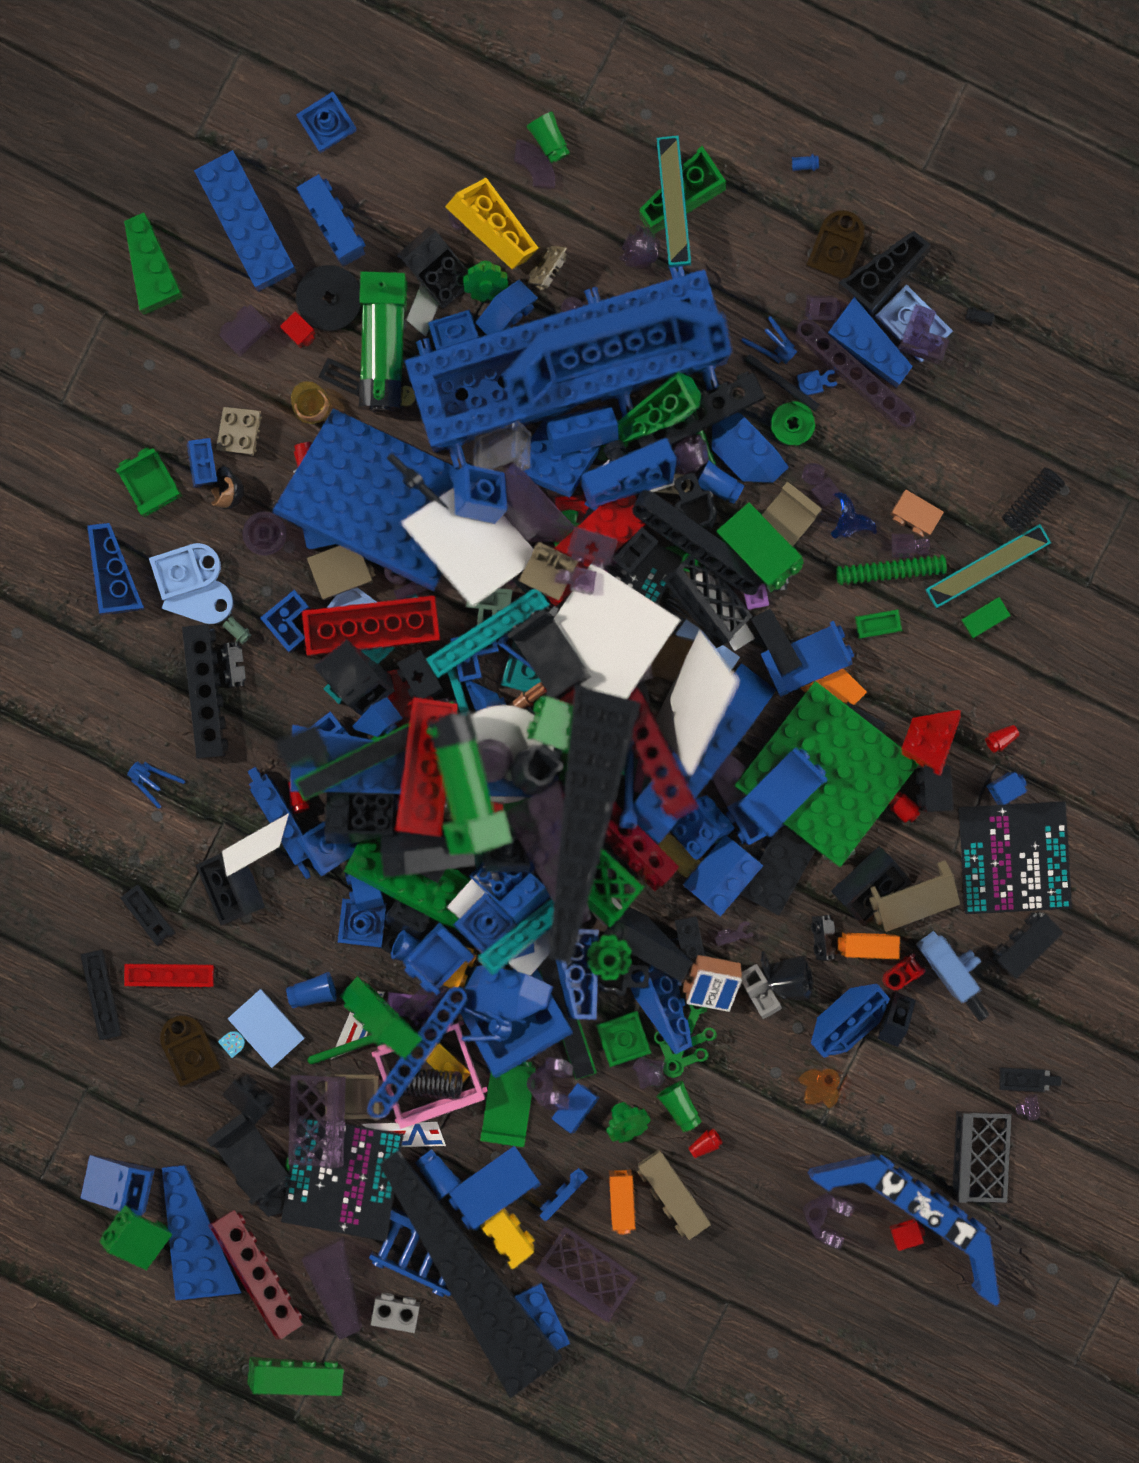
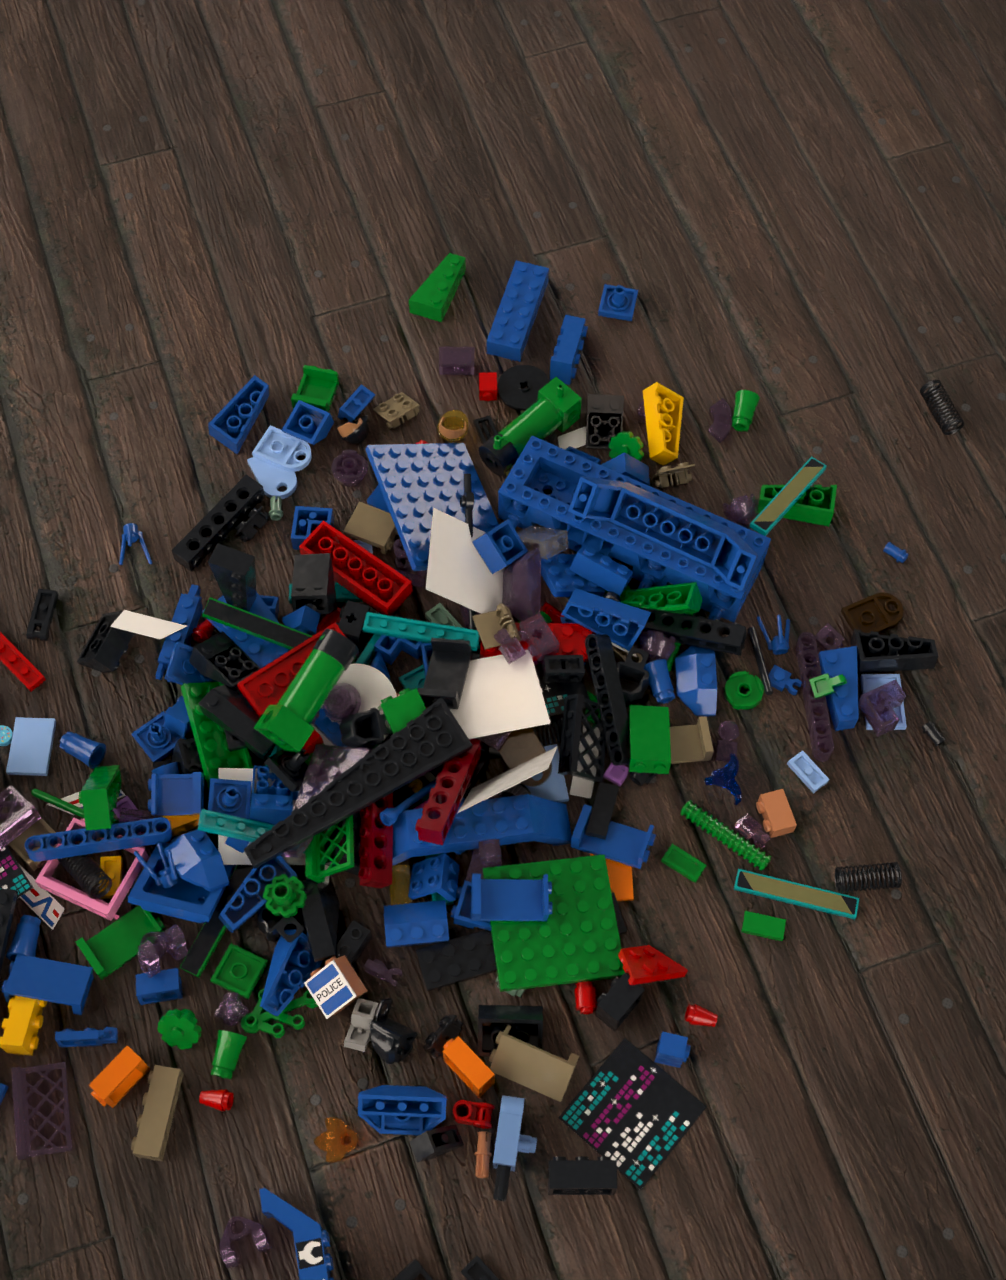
camera: 40 degrees right, 25 degrees down
(182, 526) = (308, 423): none -> blue slope
(861, 363) = (824, 685): none -> green plate
(908, 449) = (808, 771): none -> light blue plate
(937, 994) = (483, 1154): none -> nougat axle

